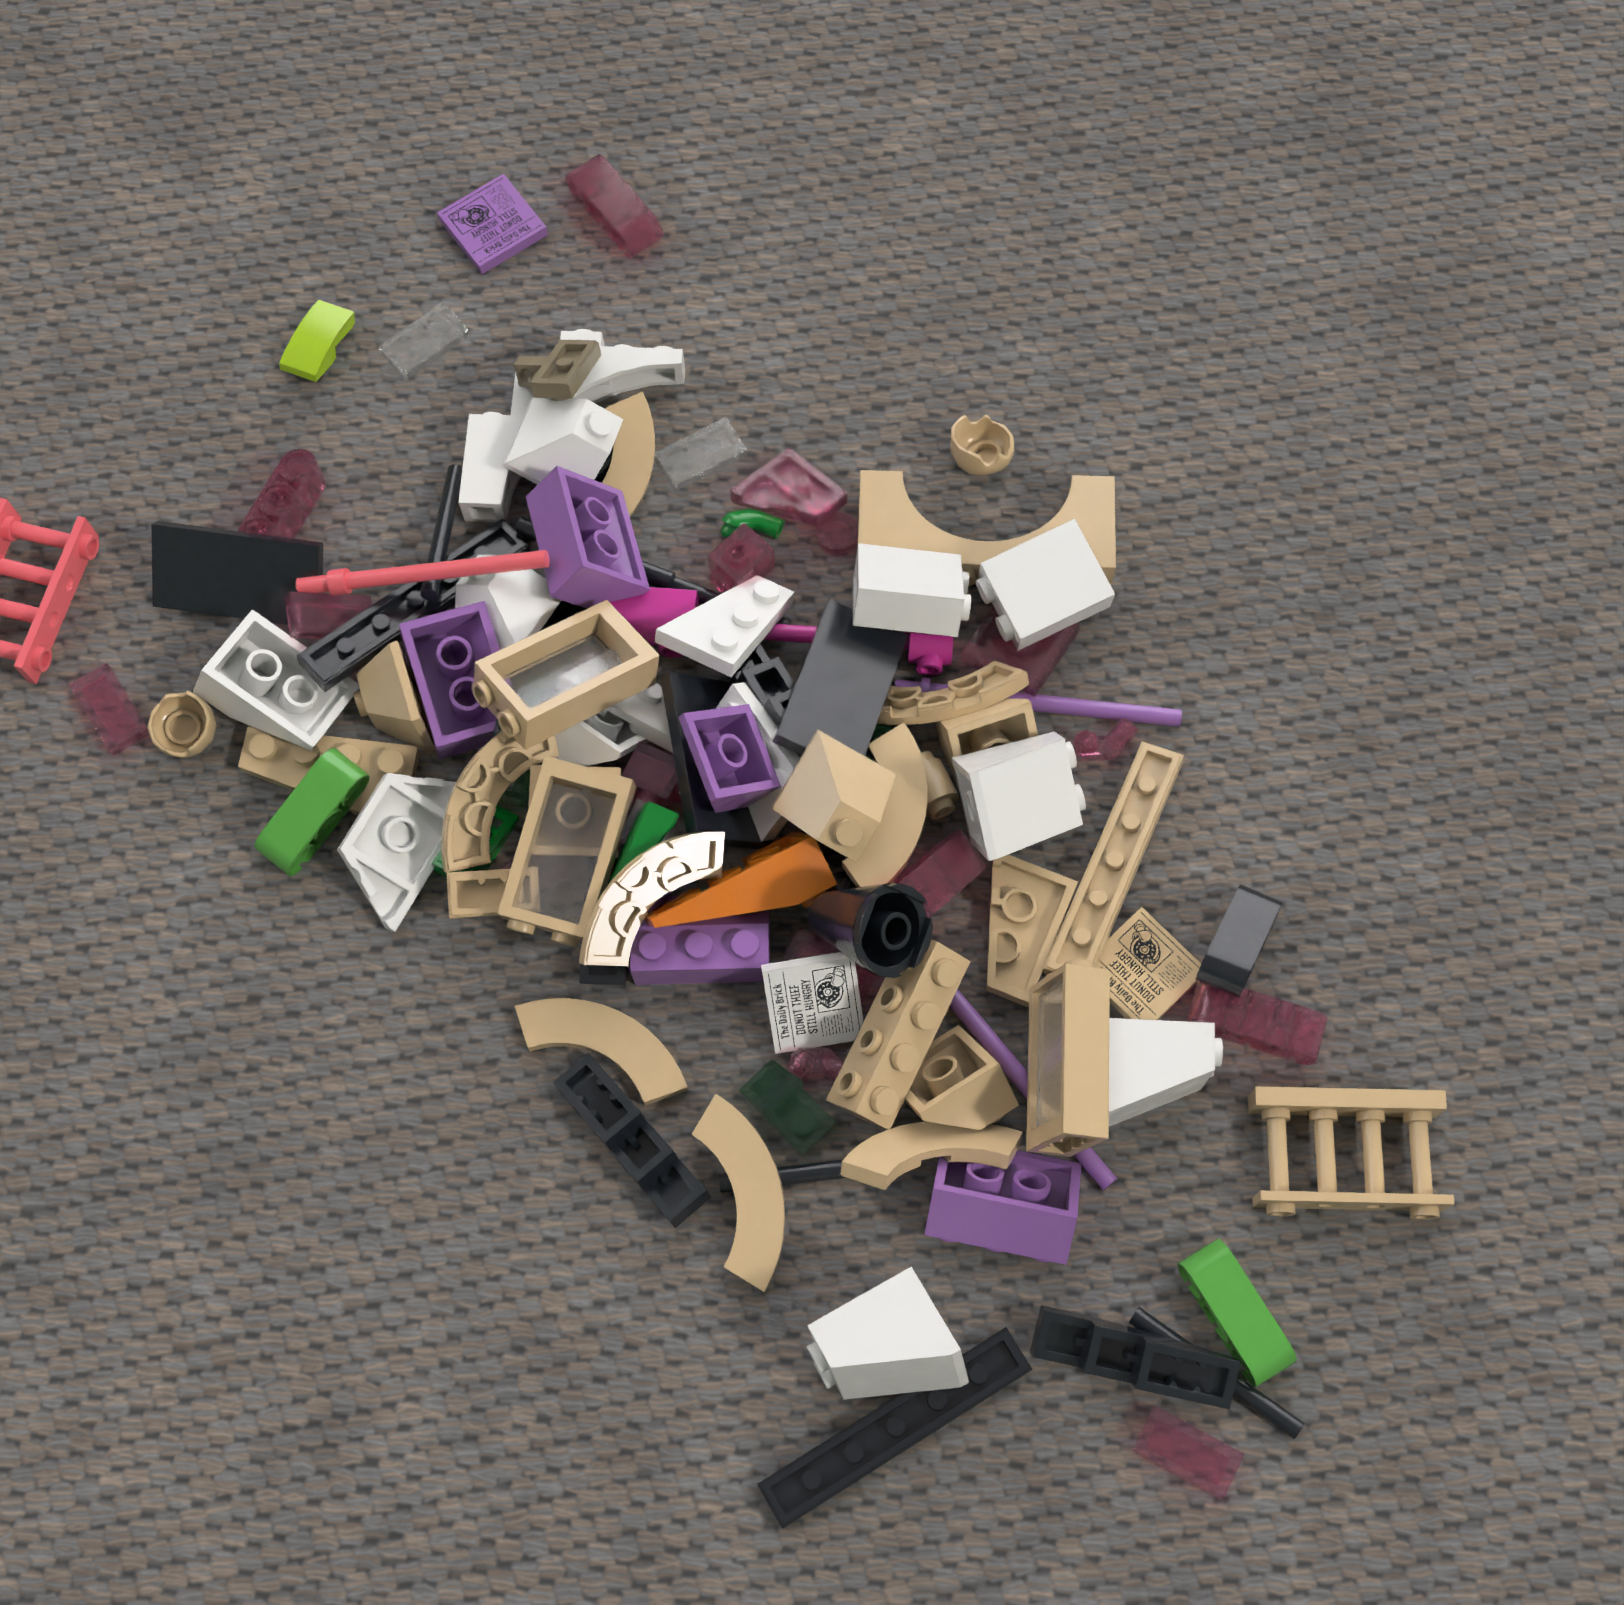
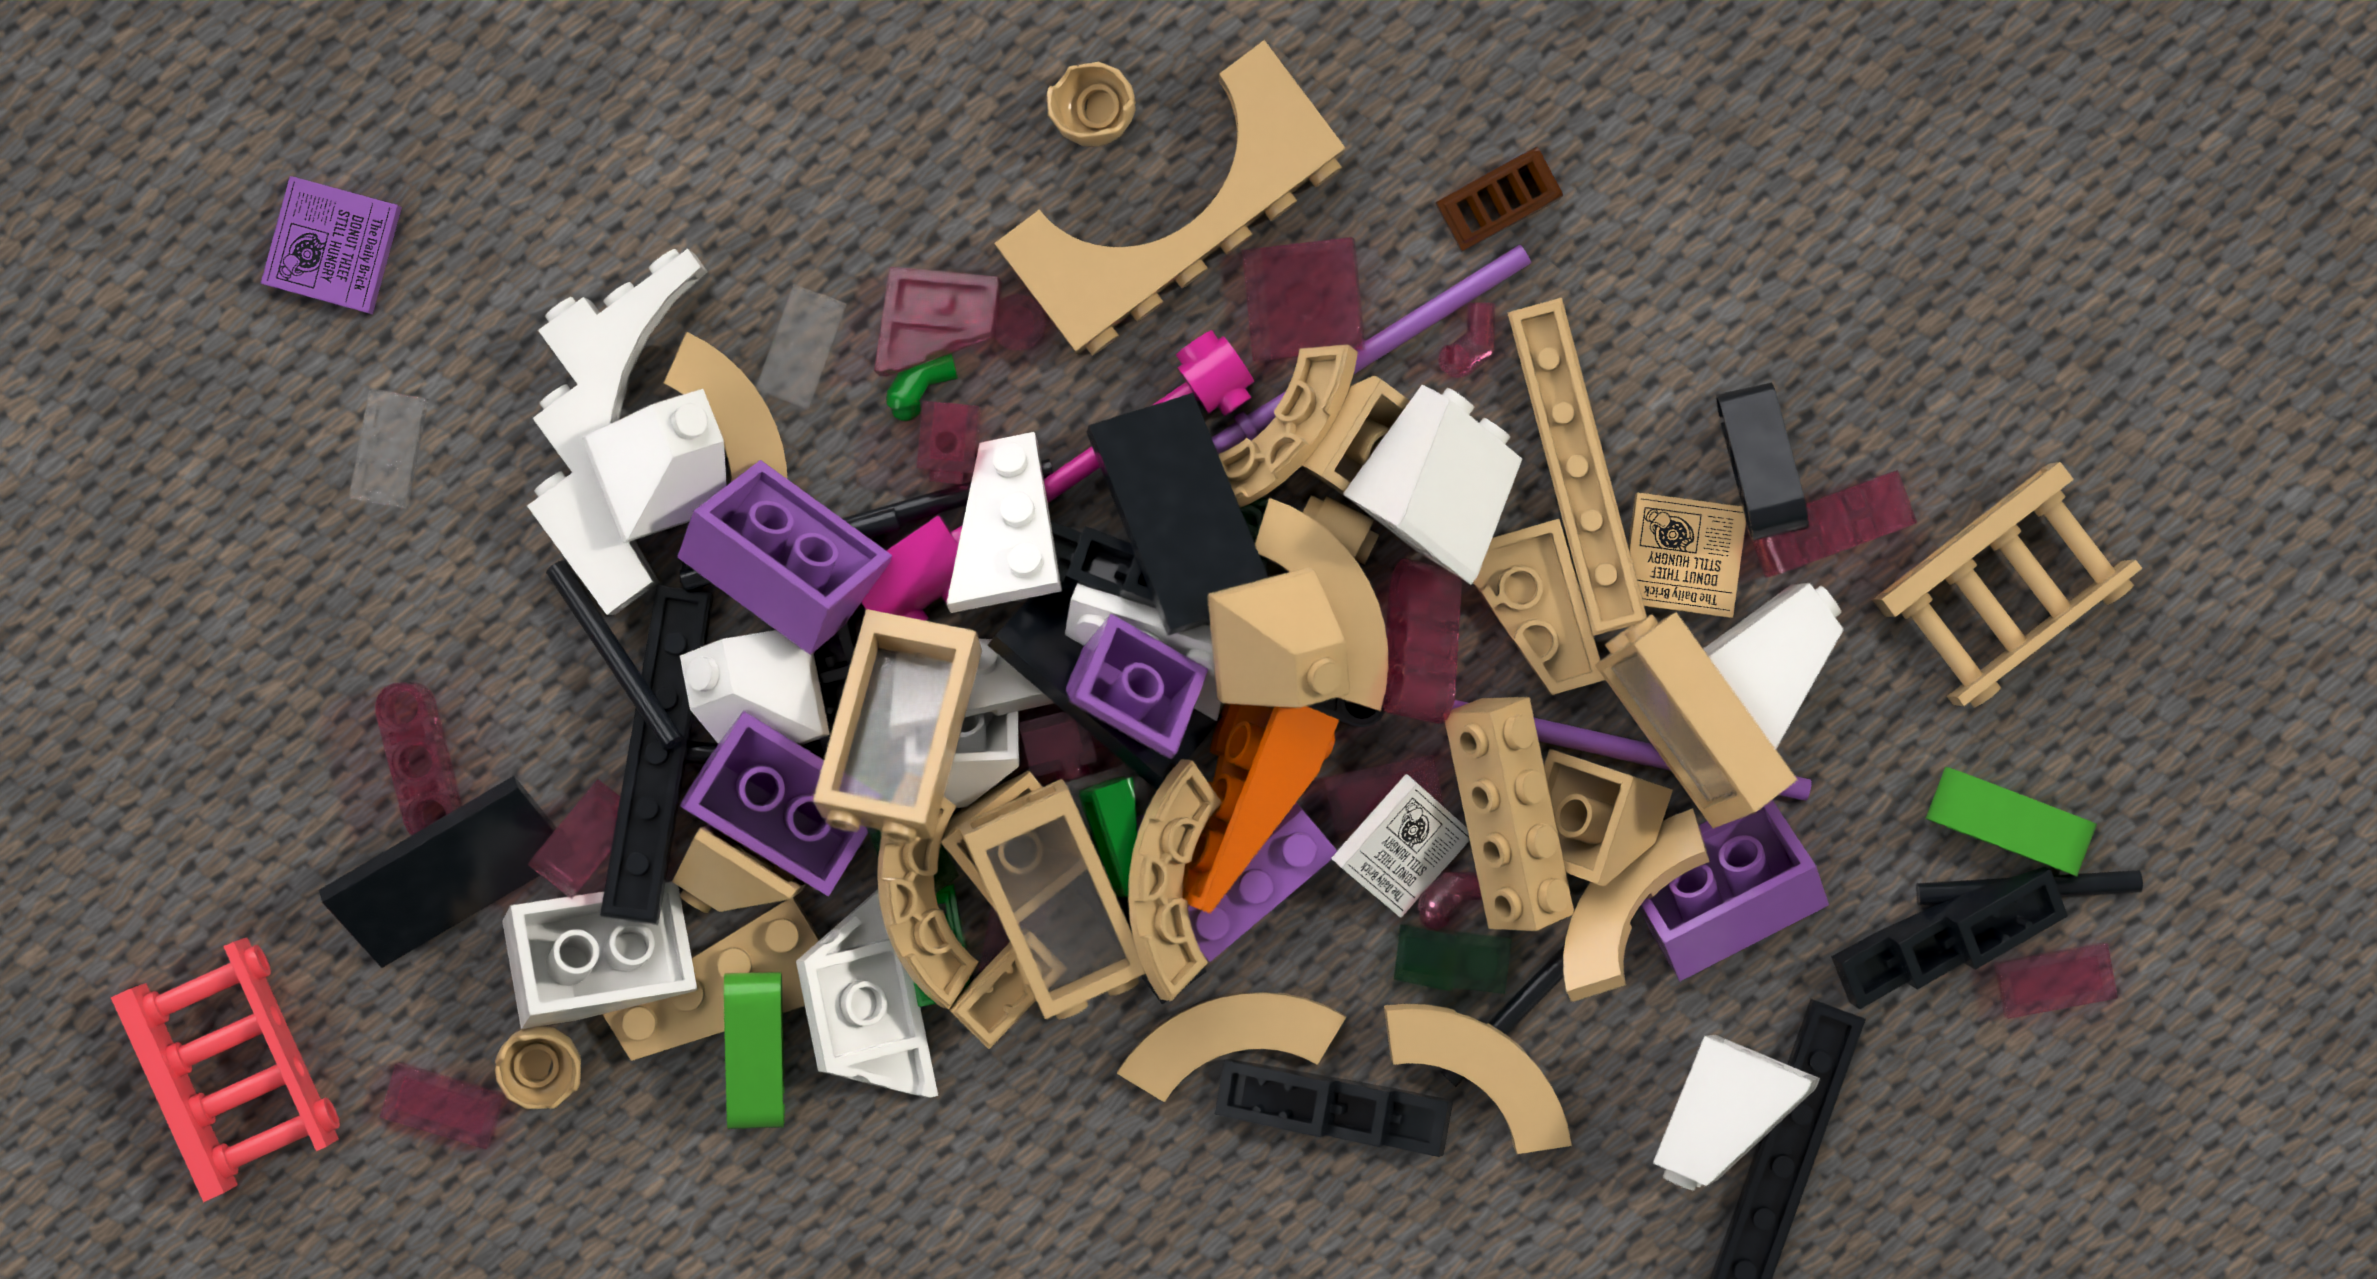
camera: 40 degrees left, 20 degrees up
(315, 339) = (271, 540): lime slope -> none
(343, 581) = (574, 799): coral bar -> none
(560, 372) = (592, 389): dark tan hinge -> none
(614, 204) = (450, 120): clear pink beam -> none
(875, 926) = (1418, 748): black cone -> none
(909, 590) = (1162, 350): white brick -> none
(1044, 585) = (1294, 235): white brick -> none
(1201, 691) = (1542, 177): none -> reddish brown slope

